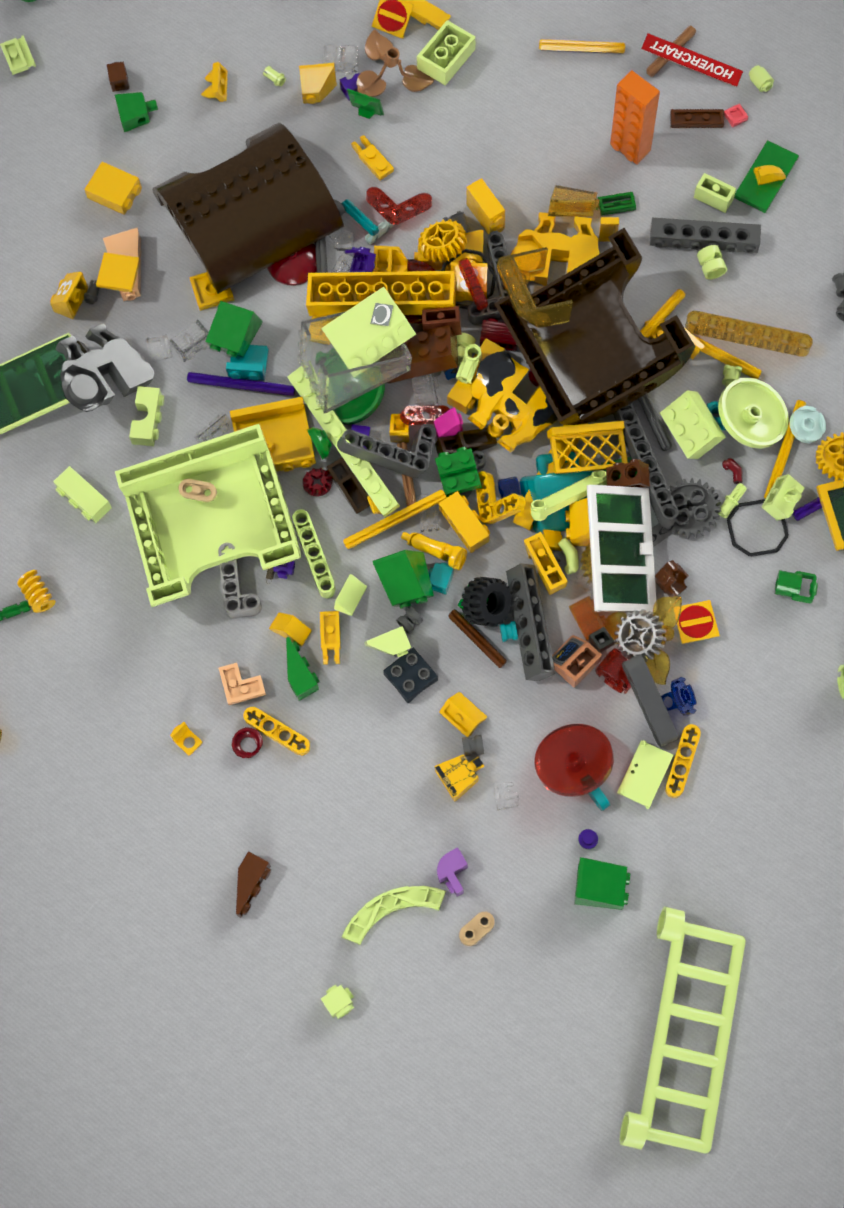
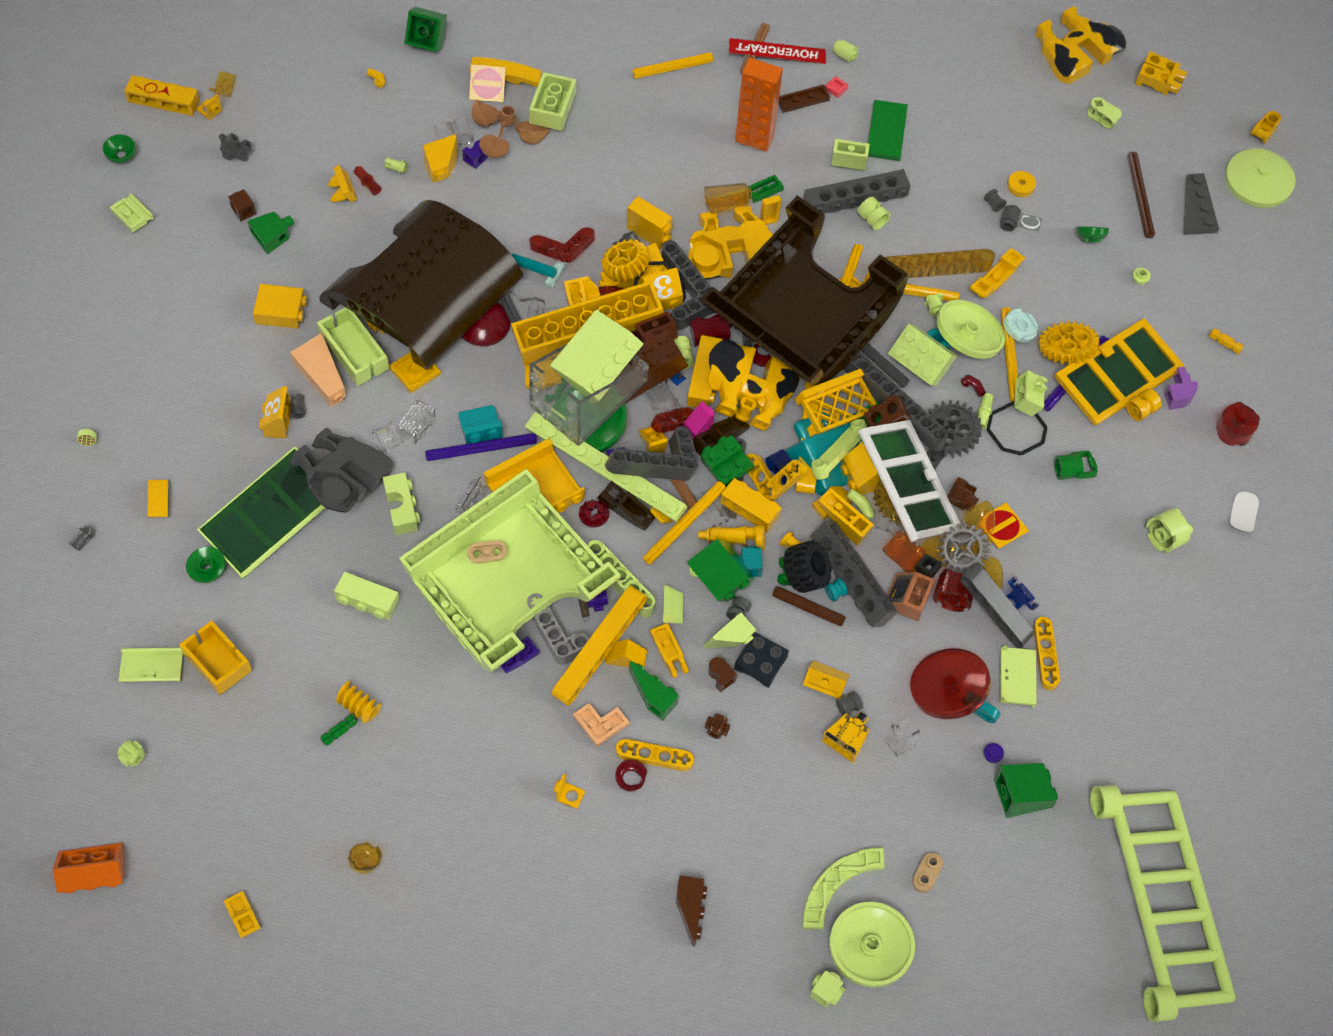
camera: 30 degrees left, 10 degrees down
(118, 272) = (319, 378): yellow tile -> none
(130, 15) = (232, 147): none -> dark grey hips
(162, 249) = (353, 346): none -> yellowish green piece
(199, 594) = (521, 657): none -> dark purple slope
(233, 329) = (455, 397): green slope -> none
(242, 84) = (367, 180): none -> clear red axle
(266, 612) = (599, 645): none -> yellow beam
(320, 441) = (583, 474): green piece -> none
(342, 724) = (717, 726): none -> reddish brown gear
(362, 259) = (554, 298): dark purple bracket -> none
(366, 104) = (496, 164): green piece -> none
(369, 675) = (722, 672): none -> reddish brown leg
(373, 158) = (521, 211): yellow hinge -> none
(381, 314) = (605, 334): light grey sticker -> none
(393, 976) = (872, 944): none -> yellowish green dish
(448, 867) = (877, 826): medium lavender brick -> none
(469, 365) = (698, 360): yellowish green piece -> none
(473, 284) = (671, 289): clear red beam -> none
(486, 570) = (789, 540): none -> yellow bush
(515, 276) = (706, 265): clear yellow windscreen -> none
(768, 174) = (889, 126): yellow brick -> none
(808, 365) = (998, 274): none -> yellow slope

